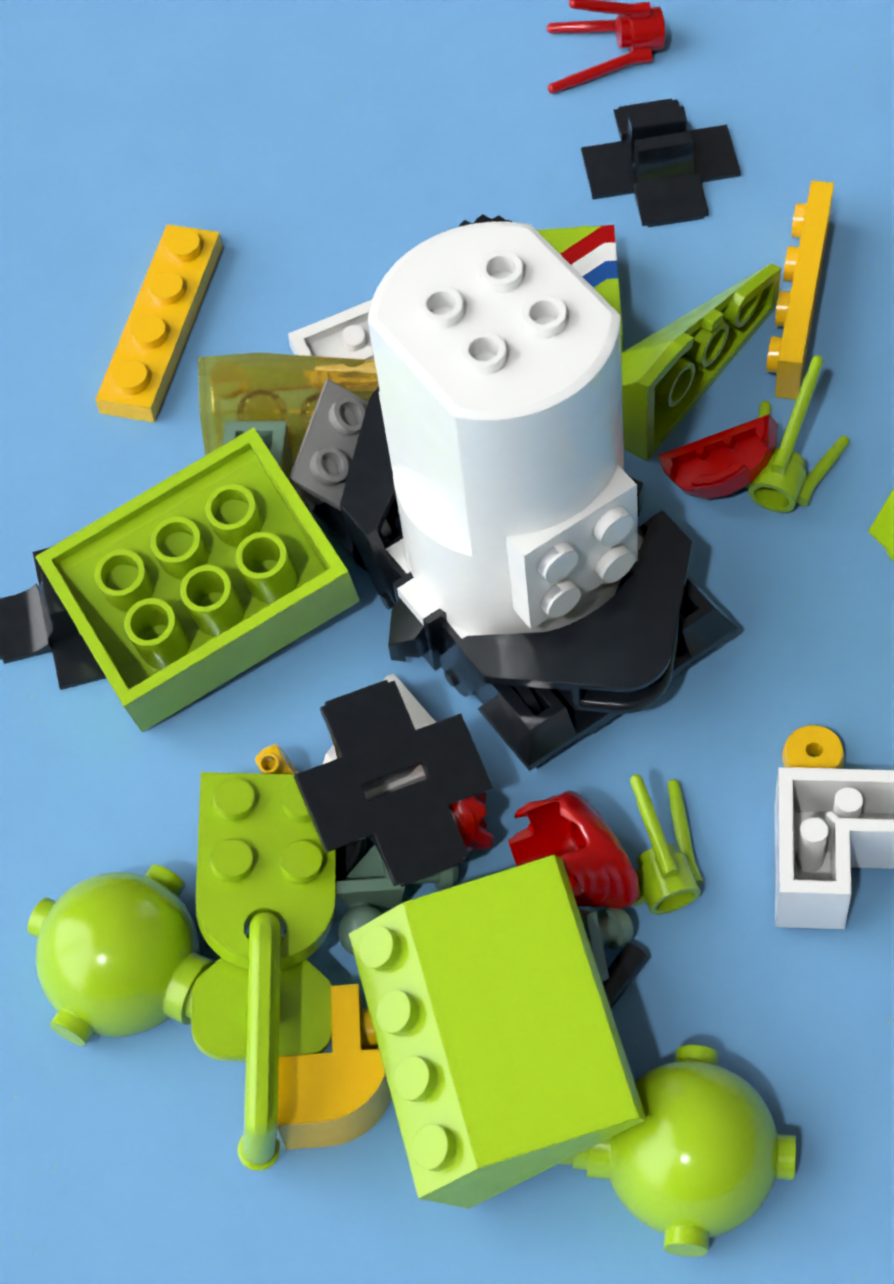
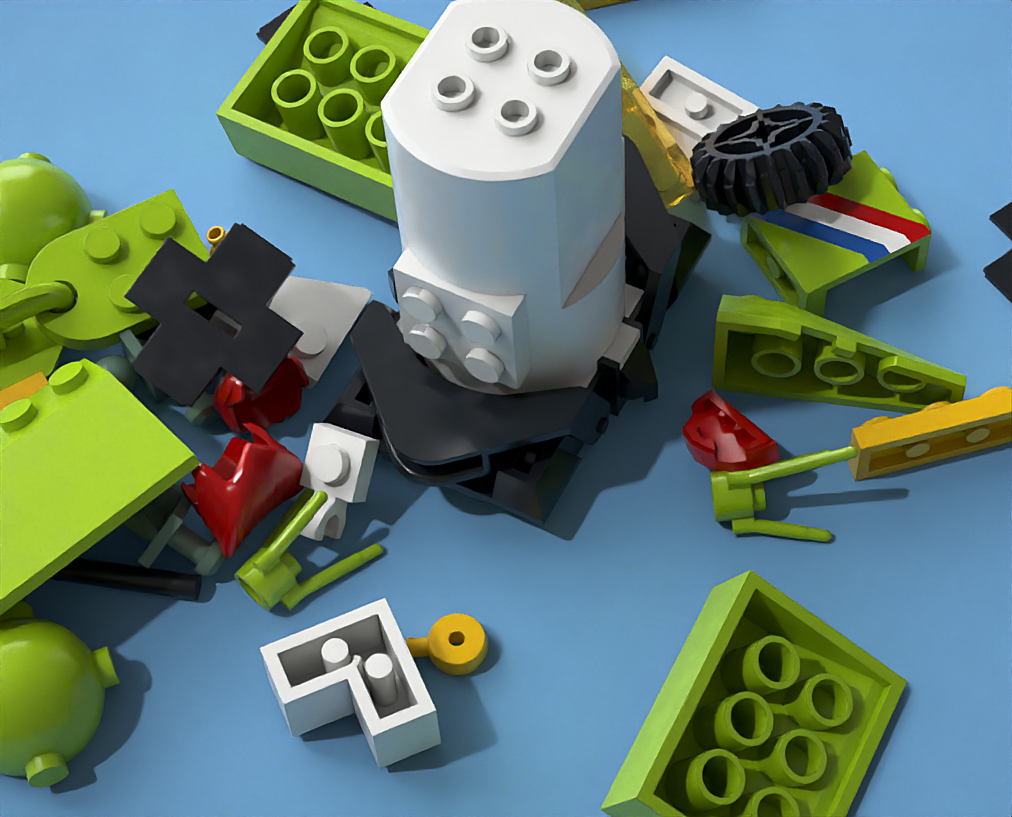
camera: 60 degrees right, 0 degrees up
(596, 767) = (340, 466): none -> white plate

